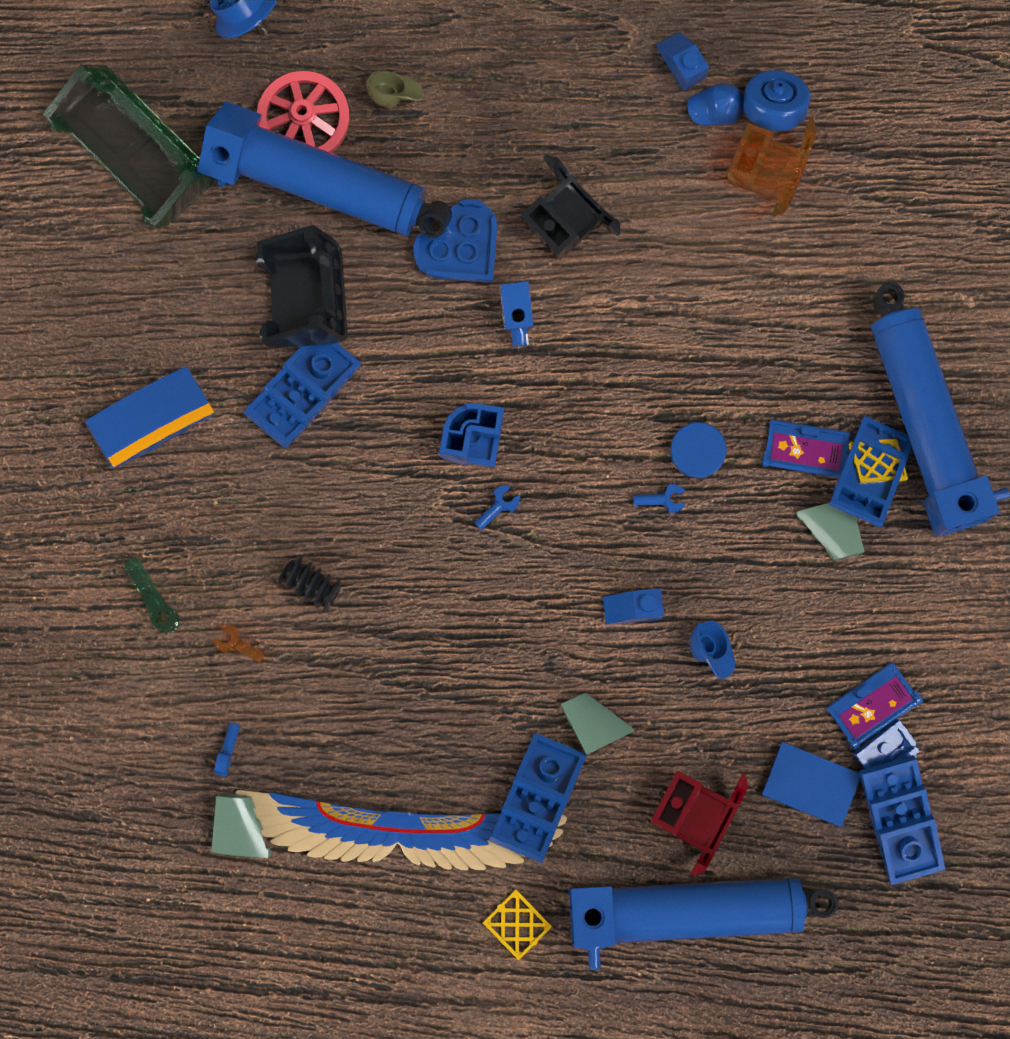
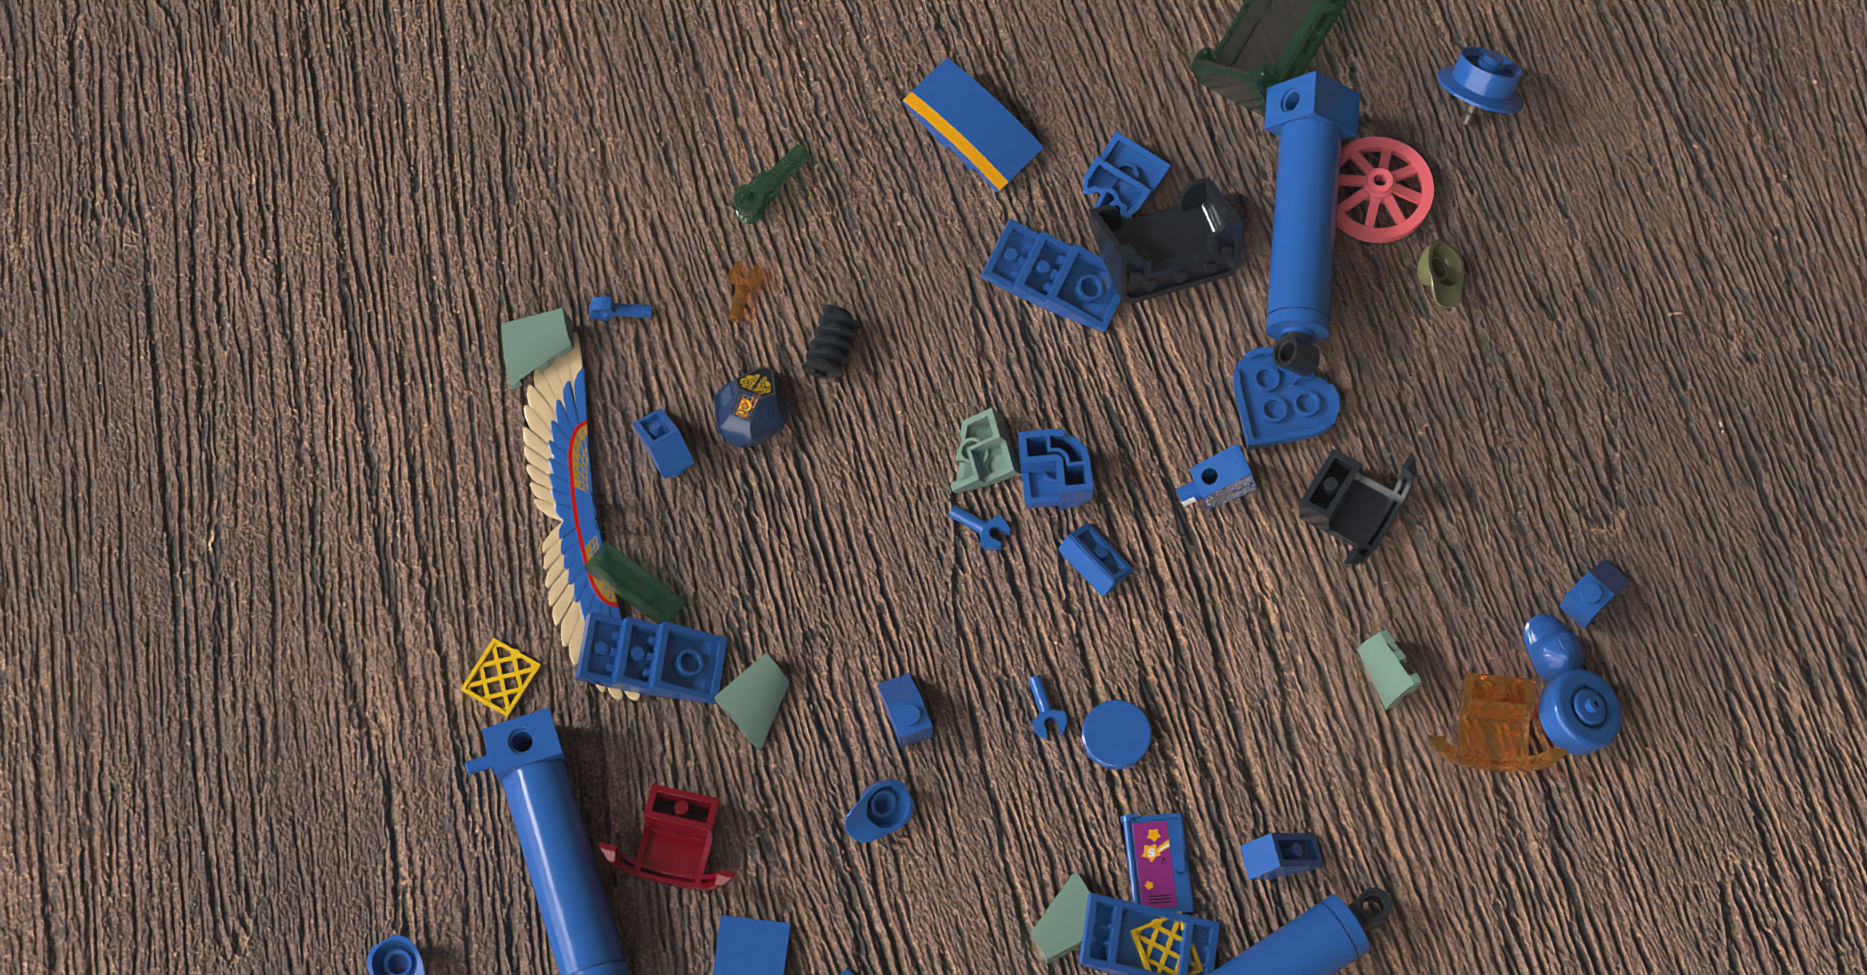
camera: 80 degrees right, 10 degrees down
(234, 309) = (1125, 175): none -> blue plate
(347, 663) = (750, 408): none -> dark blue helmet
(356, 742) = (663, 443): none -> blue slope
(437, 487) = (984, 452): none -> sand green slope
(472, 796) = (634, 584): none -> clear green tile
(549, 426) = (1095, 559): none -> blue slope
(703, 230) = (1388, 669): none -> sand green slope
(827, 354) = (1281, 855): none -> blue slope

